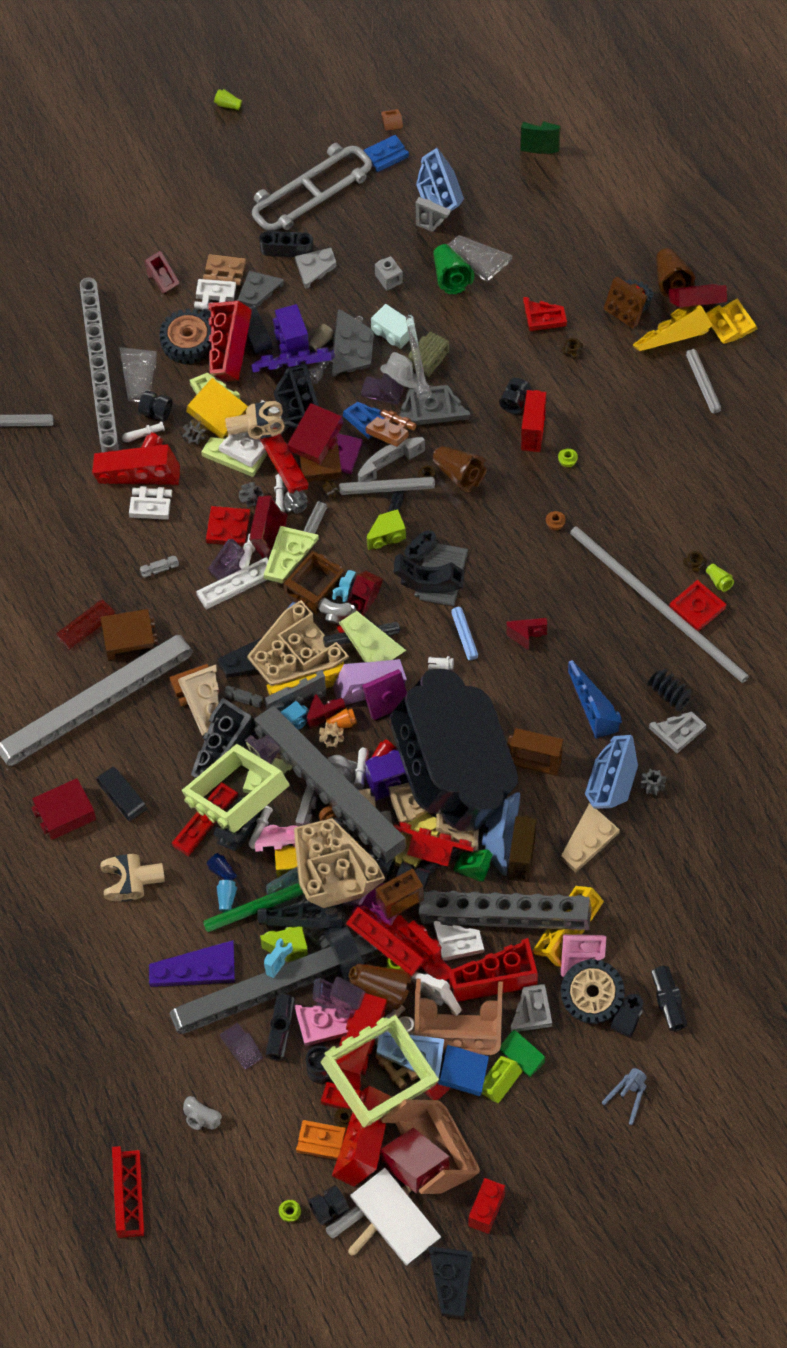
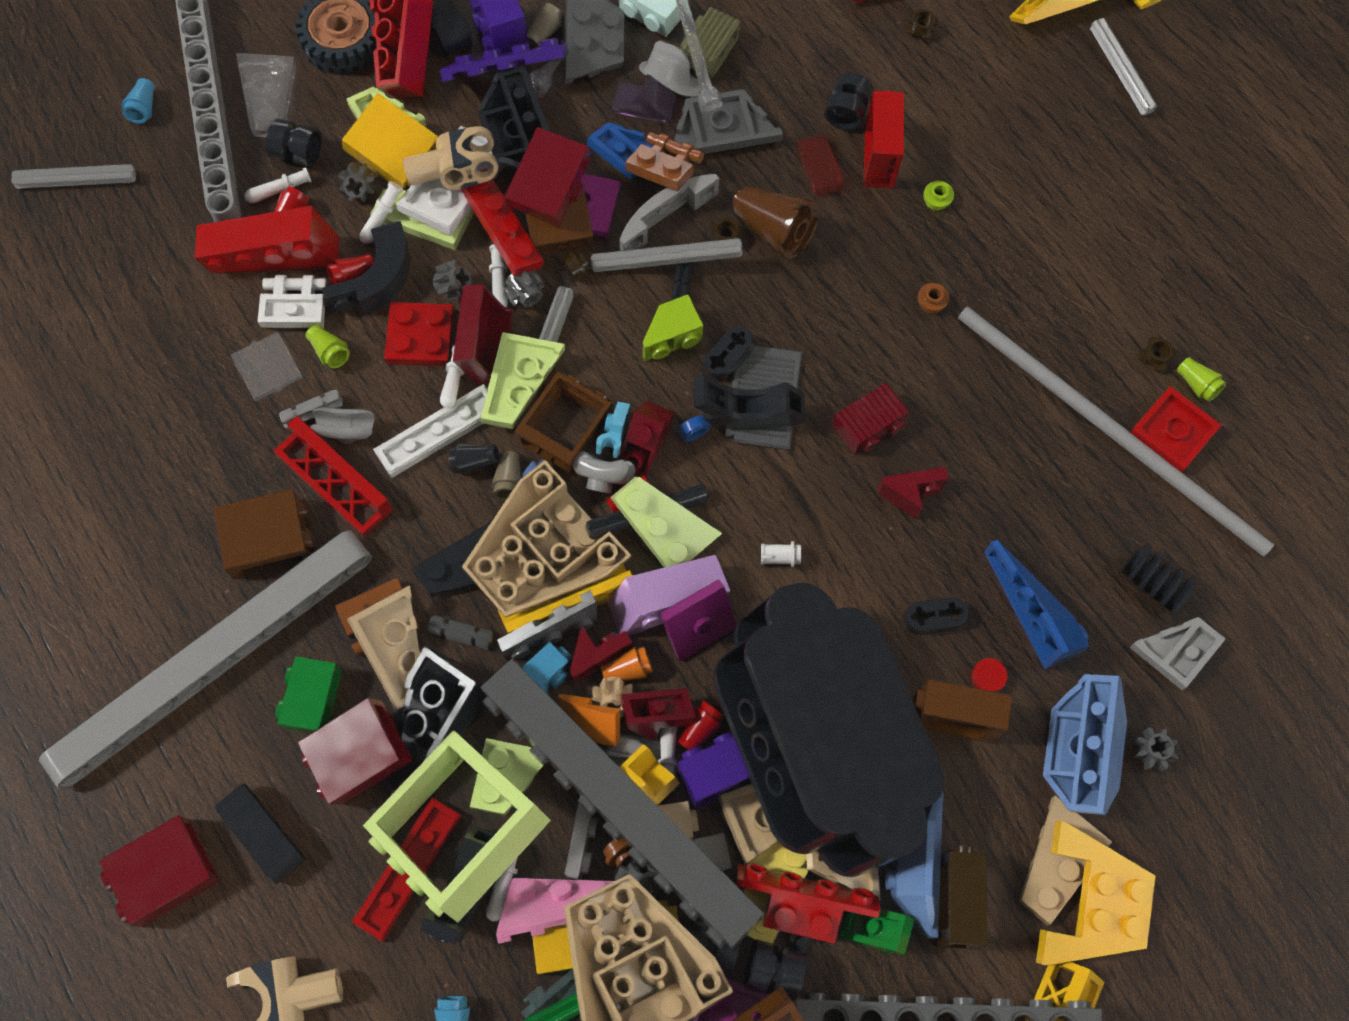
camera: 10 degrees left, 10 degrees up
(56, 377) = (139, 102): none -> dark azure cone
(84, 624) = (191, 517): clear red tile -> none
(132, 540) = (266, 366): none -> clear piece
(152, 725) = (308, 695): none -> green brick
(171, 530) = (328, 347): none -> lime cone
(173, 598) = (338, 466): none -> red fence
(178, 753) = (354, 752): none -> brick
(179, 575) = (343, 424): none -> light grey piece
(185, 486) = (349, 268): none -> red cone
(203, 458) = (384, 206): none -> white piece
(206, 493) = (381, 280): none -> black arch
(220, 867) = (441, 967): clear blue cone -> none
(227, 560) = (420, 394): clear purple slope -> none
(255, 598) = (472, 457): none -> black cone
(263, 748) = (501, 746): slope -> none
(277, 608) = (506, 475): none -> dark tan cone
(322, 743) = (598, 722): none -> orange slope
(347, 769) = (649, 774): none -> yellow panel
(352, 740) = (657, 709): none -> dark red slope
(394, 589) = (694, 428): none -> blue tile
(464, 633) = (813, 498): light blue axle -> none
(493, 435) = (820, 164): none -> clear red tile
(505, 589) = (870, 419): none -> dark red brick
(531, 704) = (936, 623): none -> black beam
(563, 734) = (989, 675): none -> red tile
(613, 860) = (1112, 902): none -> yellow wing

